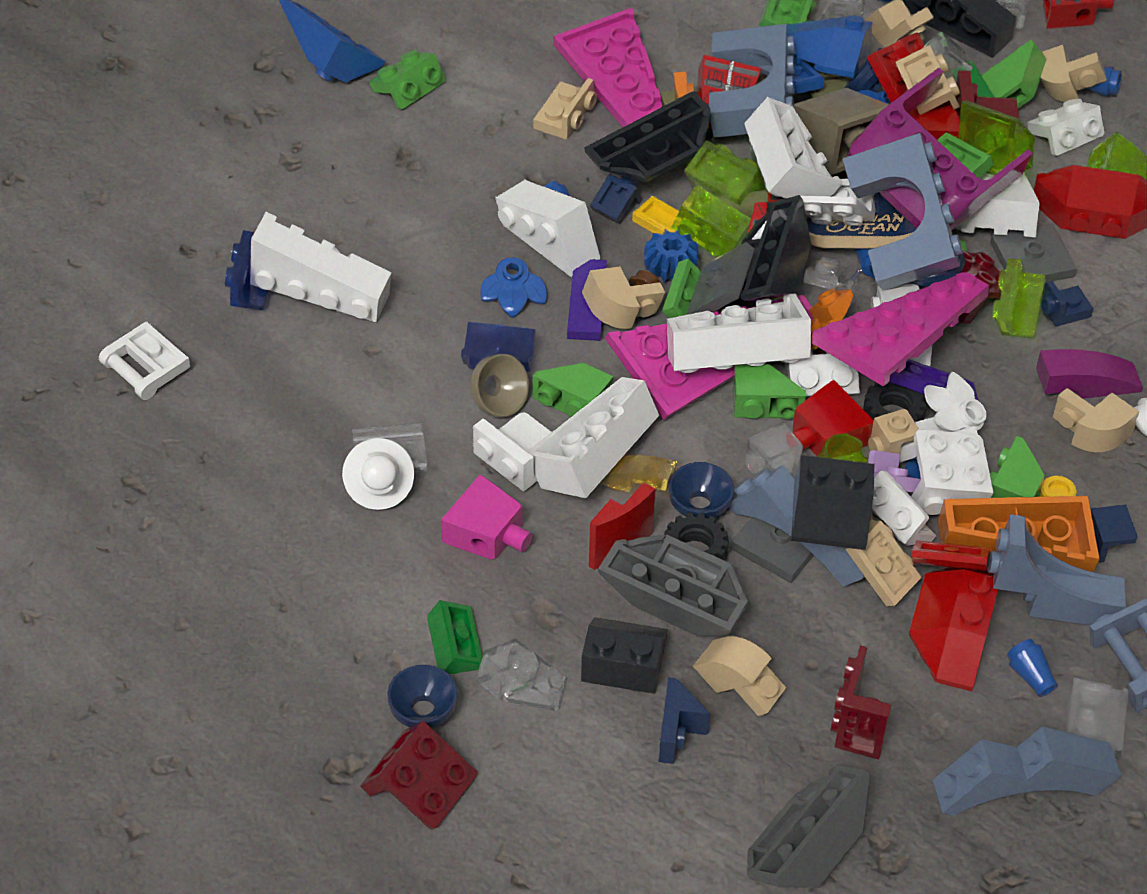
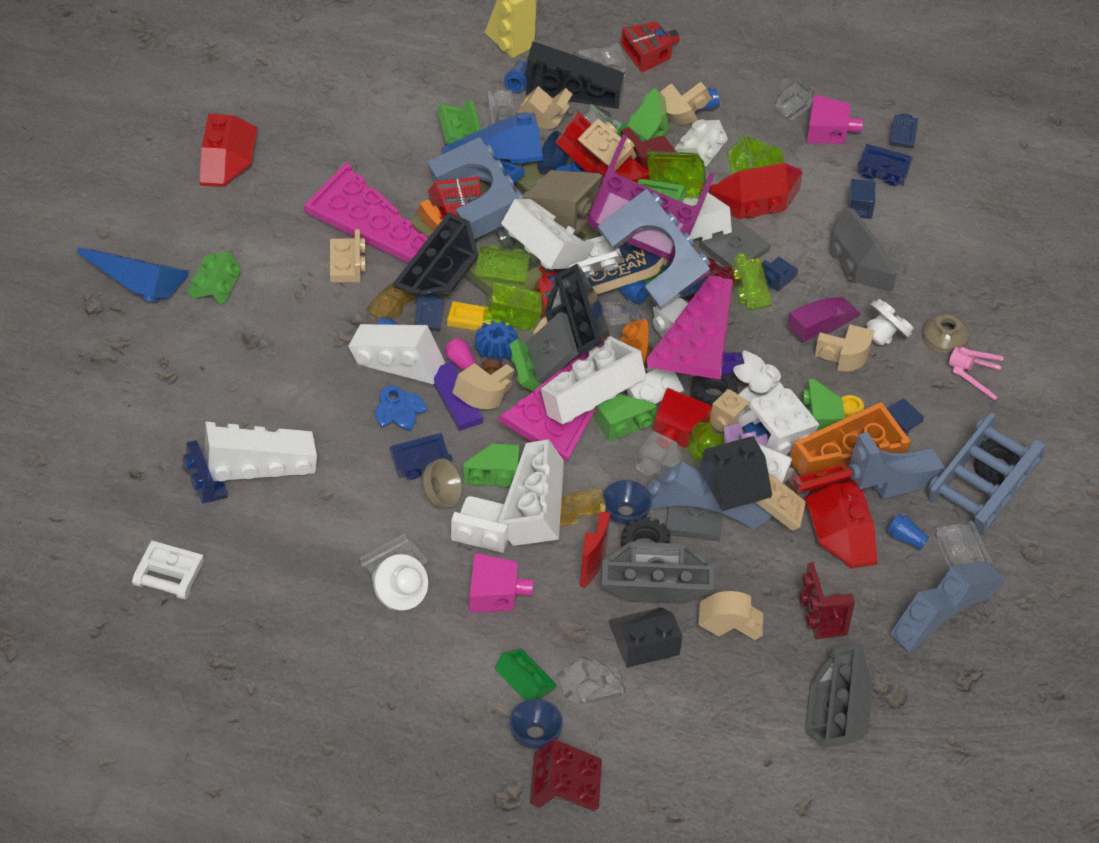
camera: 30 degrees left, 0 degrees up
(577, 171) = (389, 302): none -> clear yellow slope
(621, 252) = (460, 354): none -> dark pink cone
(681, 716) = (710, 662): dark blue slope -> none

